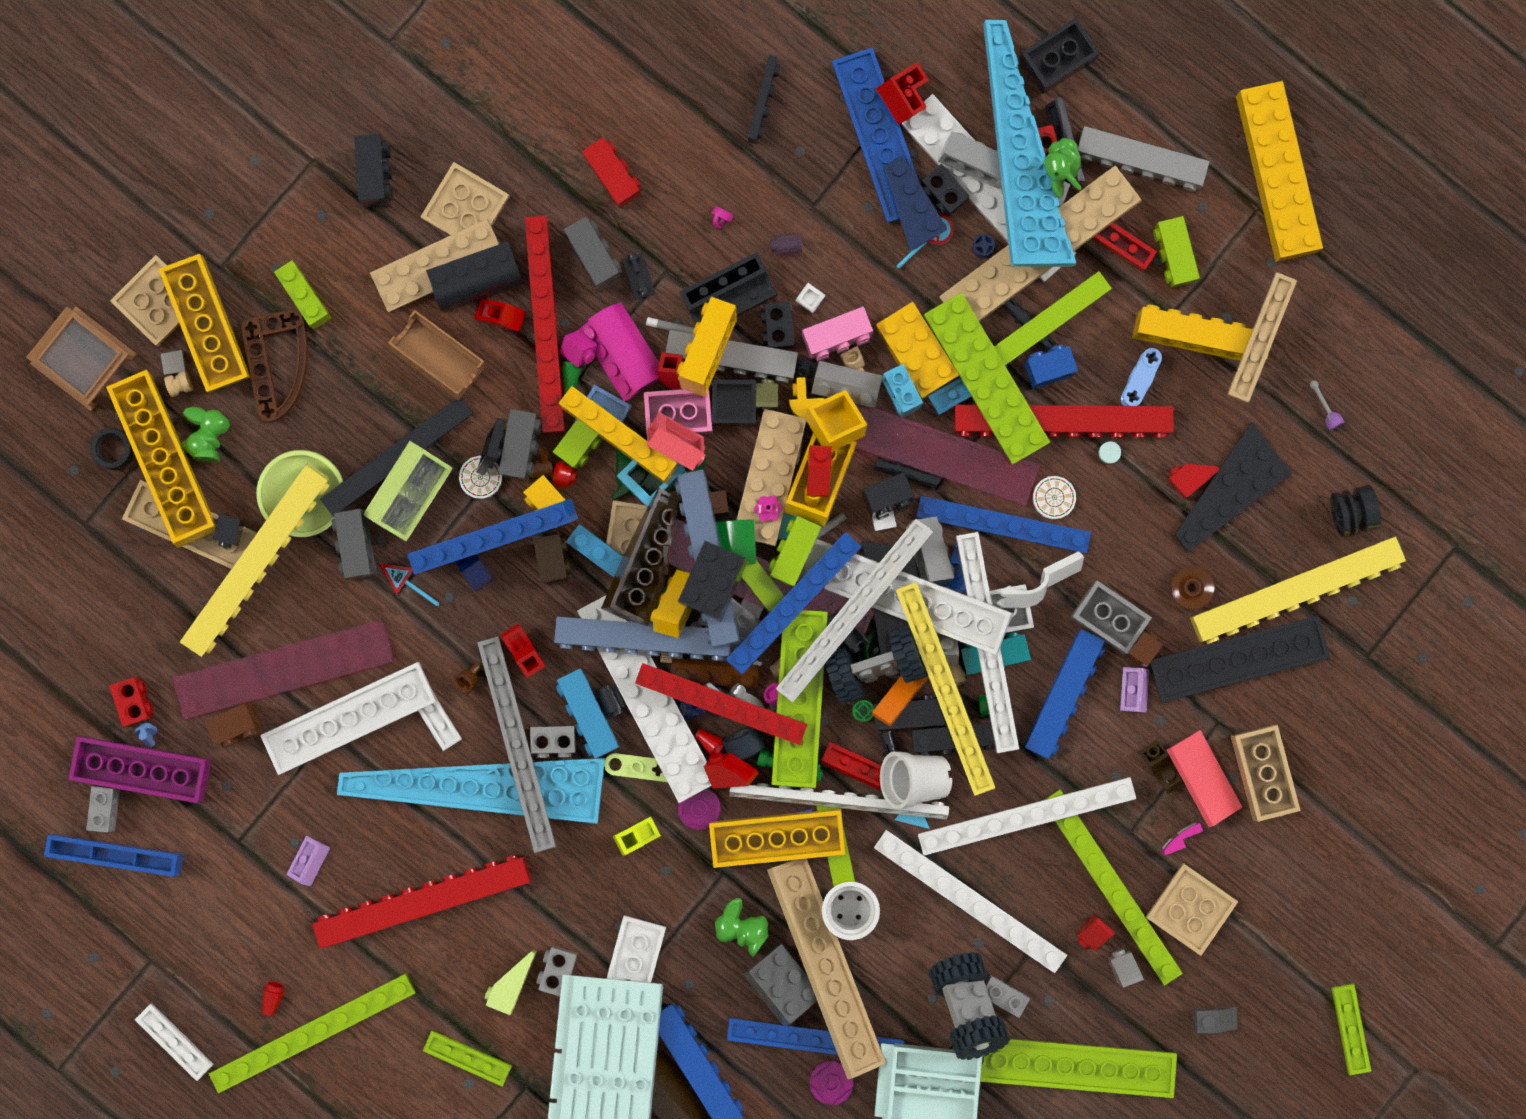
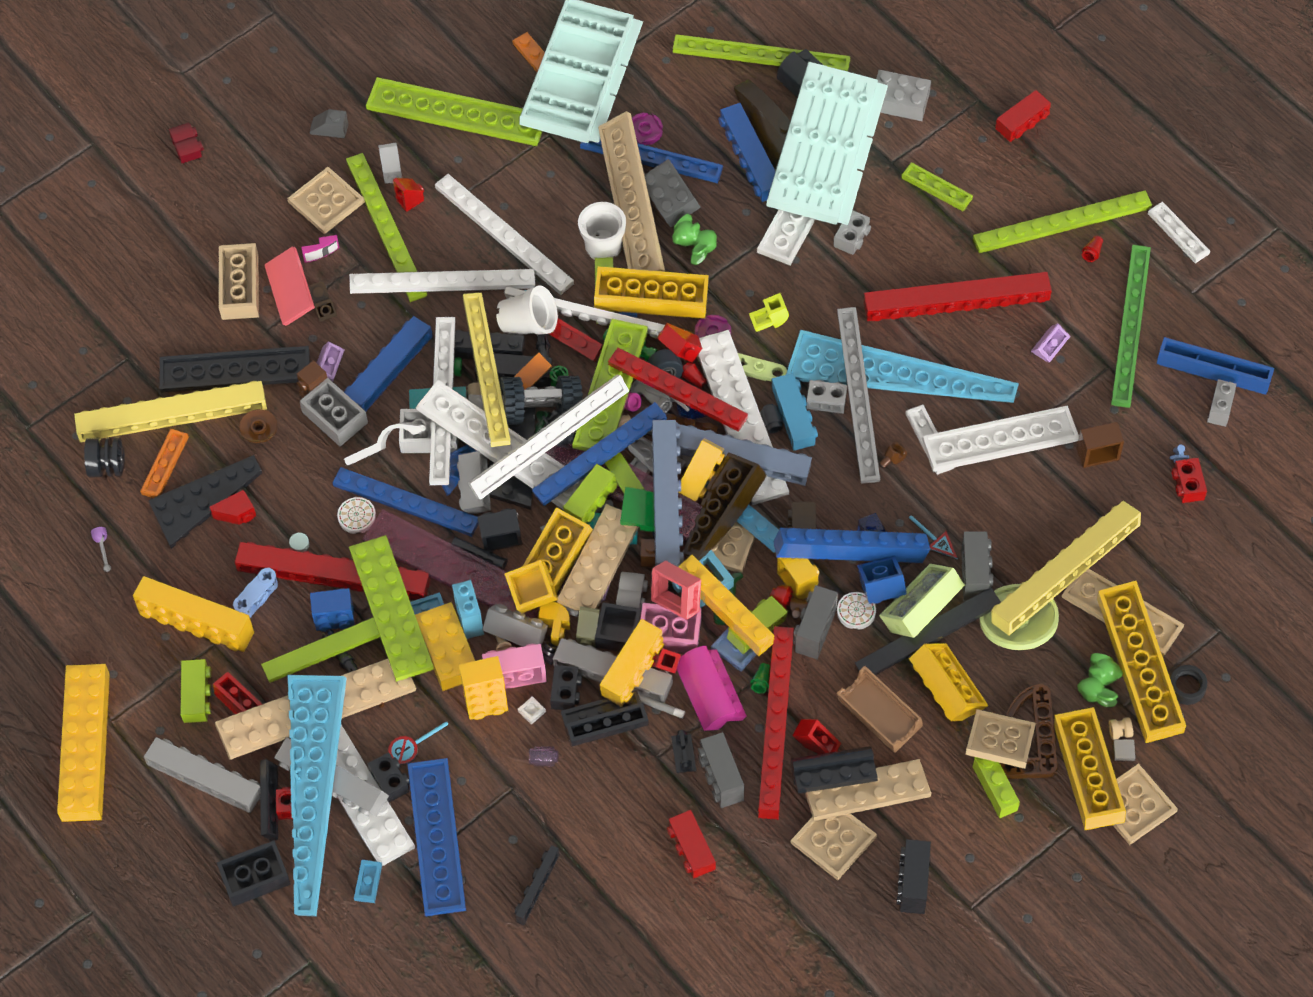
camera: 175 degrees left, 25 degrees down
(79, 355) = (1207, 766): piece -> none
(140, 769) = (1186, 425): magenta brick -> none
(216, 899) = (1131, 326): none -> bright green plate
(228, 531) = (1087, 594): black brick -> none
(283, 669) = (1053, 487): clear pink plate -> none
(301, 338) = (1000, 738): none -> tan plate
(368, 406) = (947, 681): none -> yellow slope
(455, 508) = (882, 580): none -> blue brick
(491, 446) = (841, 622): black plate -> none
(506, 991) = (893, 228): yellowish green slope -> none
(523, 650) = (839, 463): red brick -> none
(578, 348) = (749, 694): dark pink brick -> none
(712, 581) = (664, 464): black brick -> none
(720, 213) = (597, 790): dark pink tile -> none
(729, 451) = (631, 590): none -> light grey brick
(772, 513) = (606, 530): dark pink plant -> none
(819, 471) = (555, 545): red slope -> none
(863, 288) = (483, 687): none -> yellow brick
(901, 94) = (408, 862): red brick -> none
(915, 210) = (419, 760): dark blue wing -> none
(939, 73) = (368, 881): none -> dark azure plate
(975, 1022) = (522, 147): black plate -> none
(986, 243) = (362, 722): dark blue wheel -> none
(1006, 996) = (492, 162): light grey brick -> none
(1063, 163) = (276, 769): bright green animal -> none
(1261, 337) = (142, 589): tan plate -> none
(1286, 525) = (164, 463): none -> orange tile
(1351, 1029) = (224, 105): lime tile -> none
(1382, 962) = (185, 142): none -> dark red brick

